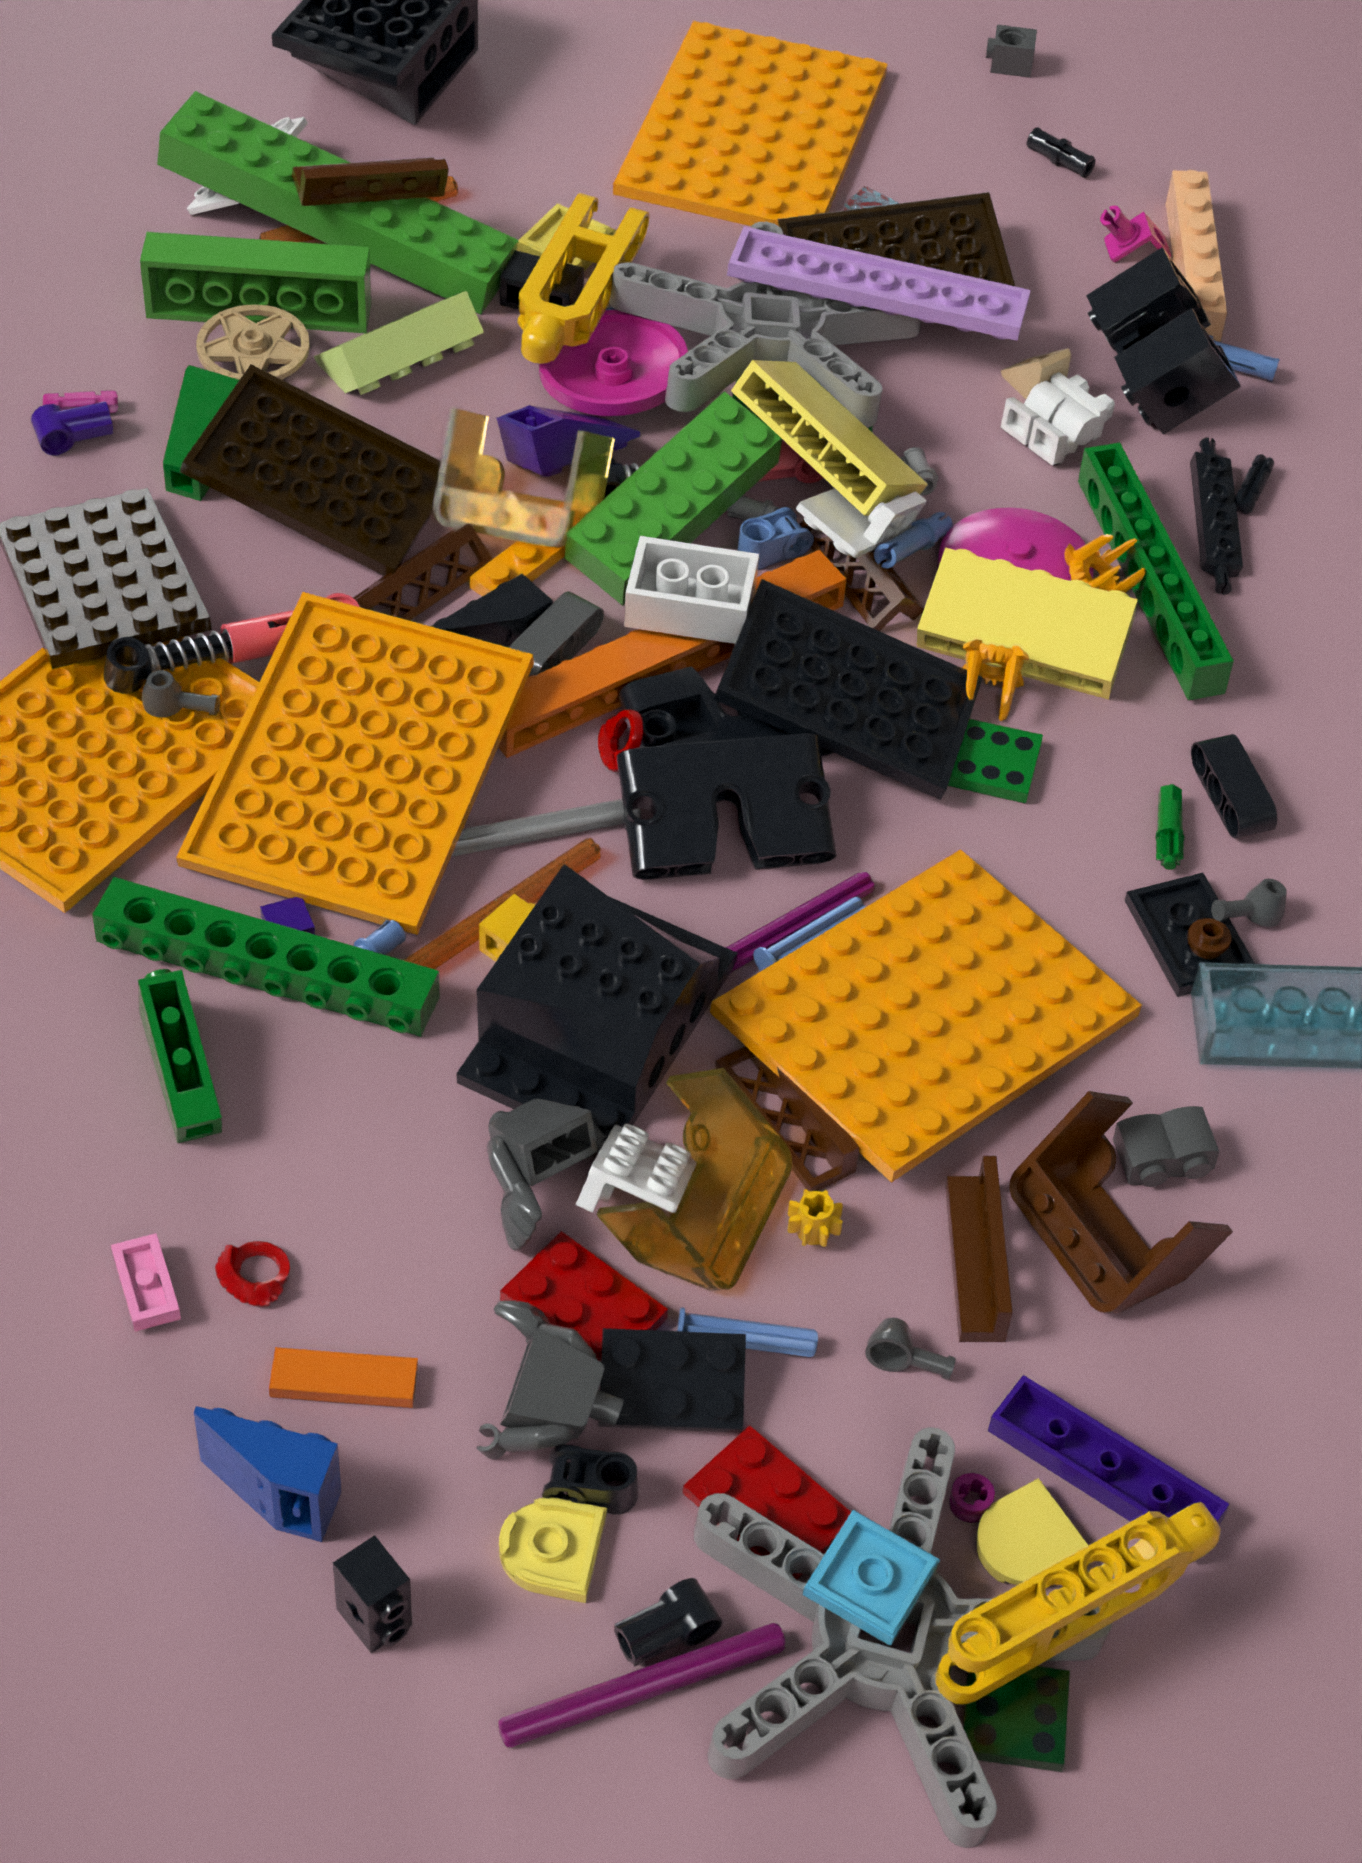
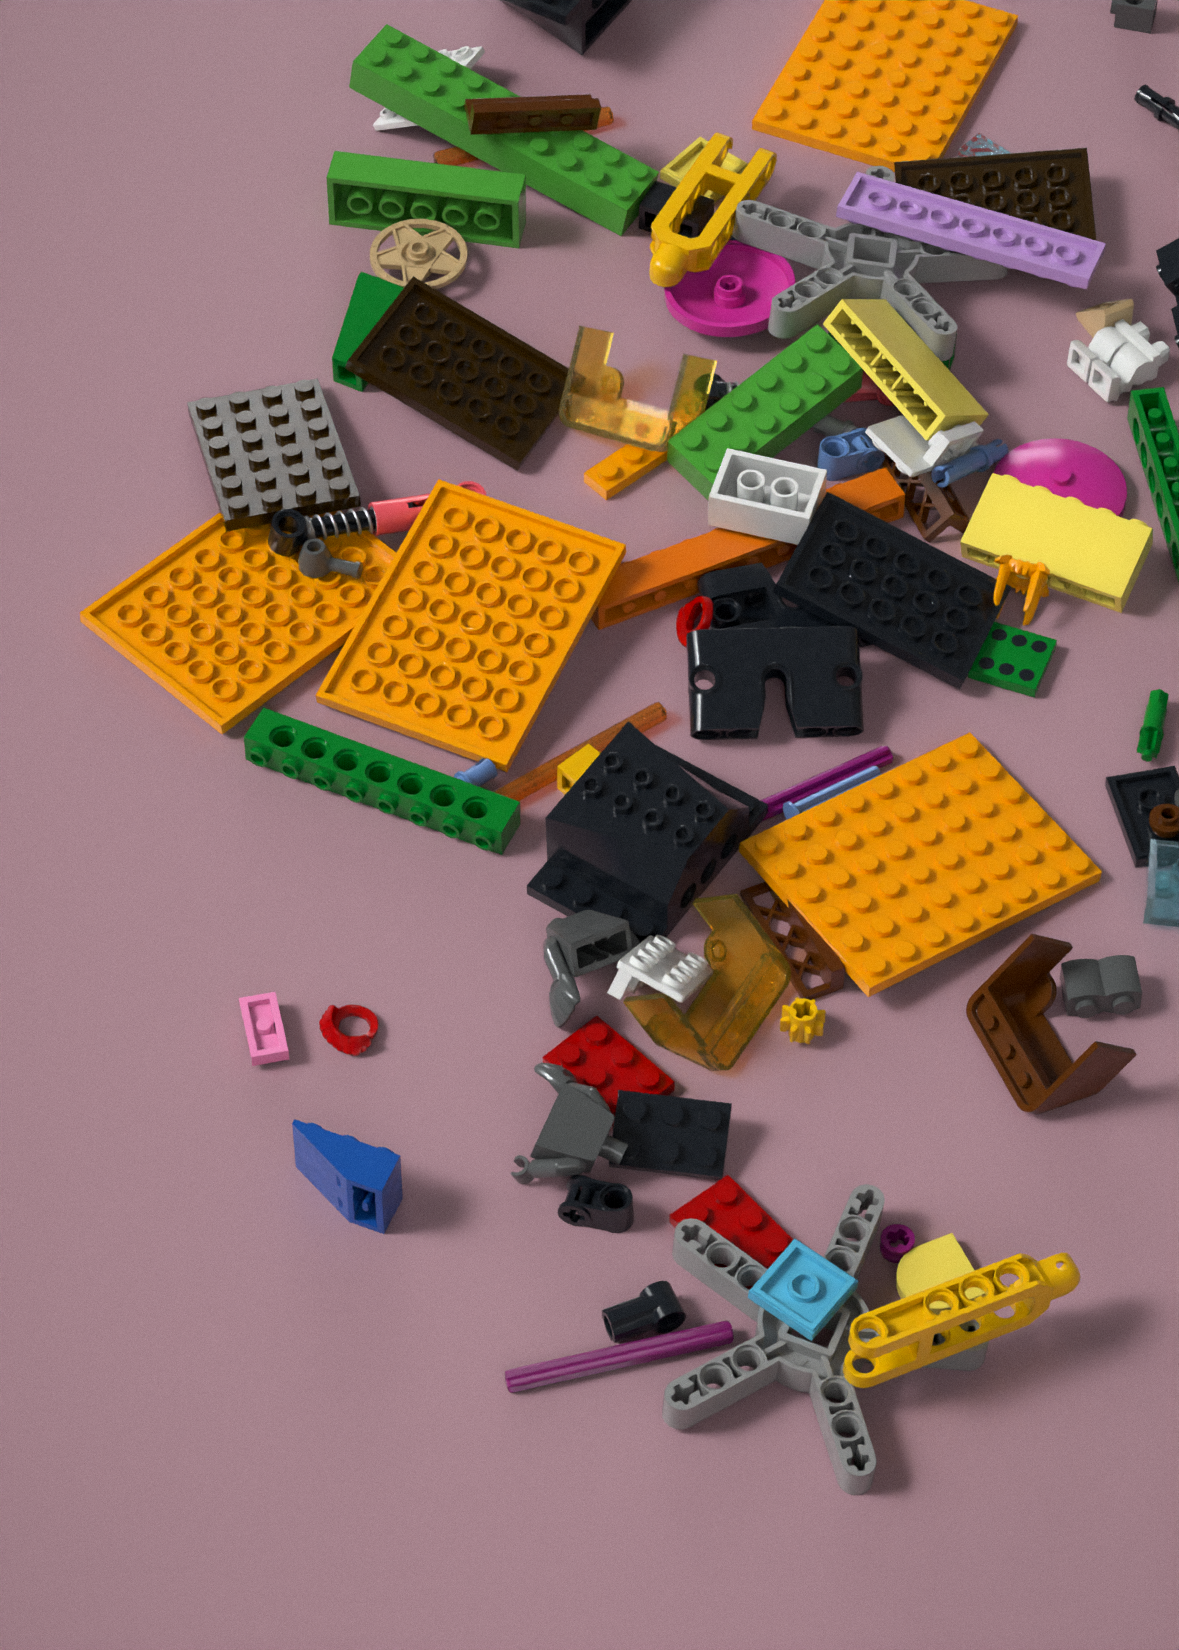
camera: 10 degrees right, 0 degrees up
(60, 428) = (248, 321): dark purple piece -> none
(79, 399) = (266, 299): dark pink axle -> none
(178, 1055) = (304, 854): green slope -> none
(289, 913) = (404, 747): dark purple tile -> none
(343, 1377) = (412, 1113): orange tile -> none
(373, 1594) = (418, 1271): black brick -> none
(402, 343) = (548, 260): yellowish green slope -> none
(422, 564) = (543, 459): reddish brown fence -> none
(499, 614) = (607, 510): black slope -> none
(541, 826) = (619, 690): light grey axle -> none
(546, 437) = (657, 352): dark purple slope -> none
(552, 1547) = (562, 1252): light yellow tile -> none
(560, 631) = (654, 526): dark grey beam -> none
(758, 1335) = (743, 1107): medium blue axle -> none
(893, 1350) = (851, 1127): dark grey bar -> none
(917, 461) = (987, 399): light grey pin -> none
(979, 1255) = (931, 1060): reddish brown fence -> none
(1021, 1720) = (909, 1407): dark green tile -> none
(1089, 556) = (1120, 486): light orange piece -> none
(1094, 1456) = (1000, 1219): dark purple piece -> none

